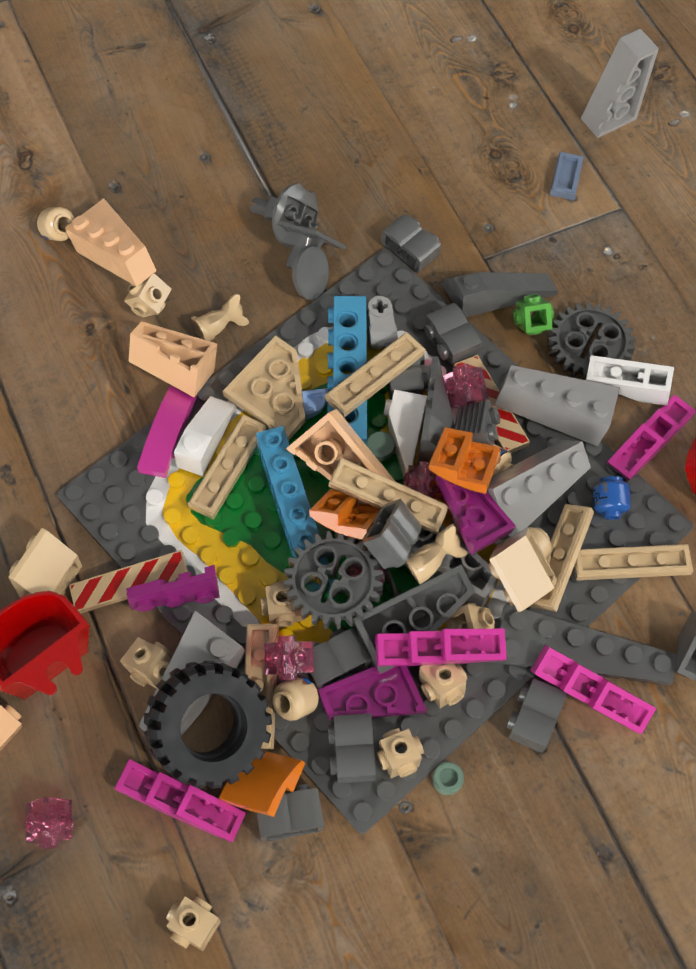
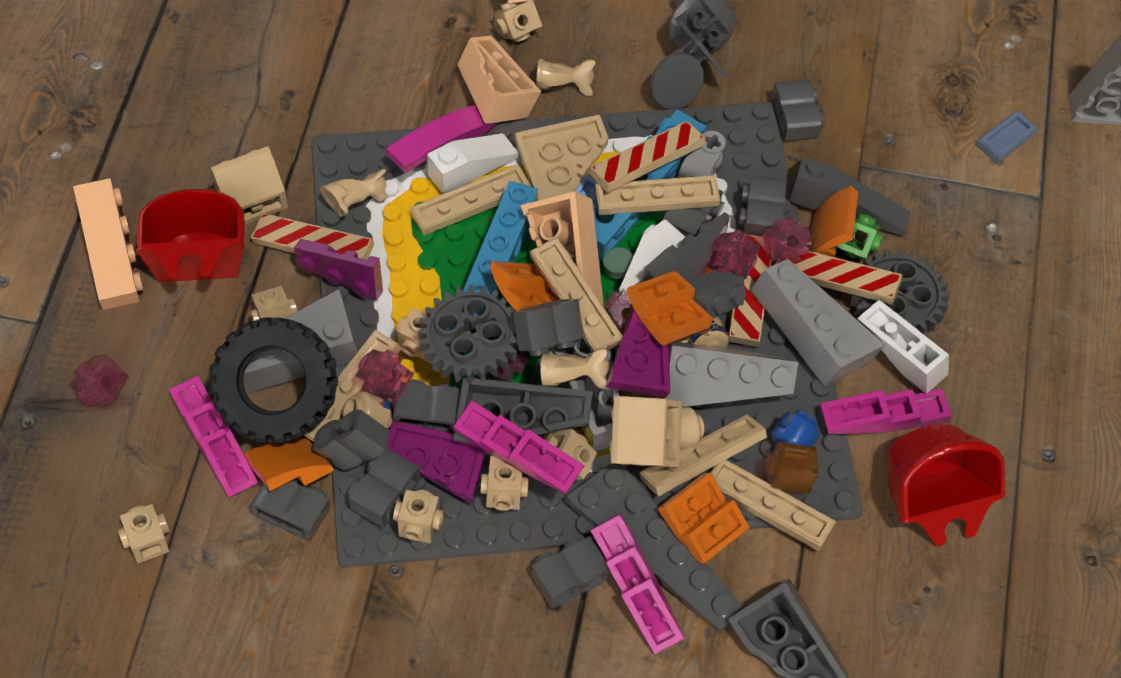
camera: 35 degrees right, 5 degrees down
(129, 524) = (346, 192): none -> tan animal
(305, 729) = (351, 440): none -> dark grey brick
(346, 348) = (647, 156): none -> tan tile
(448, 778) = (449, 571): sand green tile -> none
(495, 351) = (776, 238): none -> clear pink brick
(511, 318) = (834, 222): none -> orange slope
(546, 352) = (850, 277): none -> tan tile
(600, 606) = (703, 518): none -> orange slope
(632, 523) = (792, 467): none -> clear orange brick

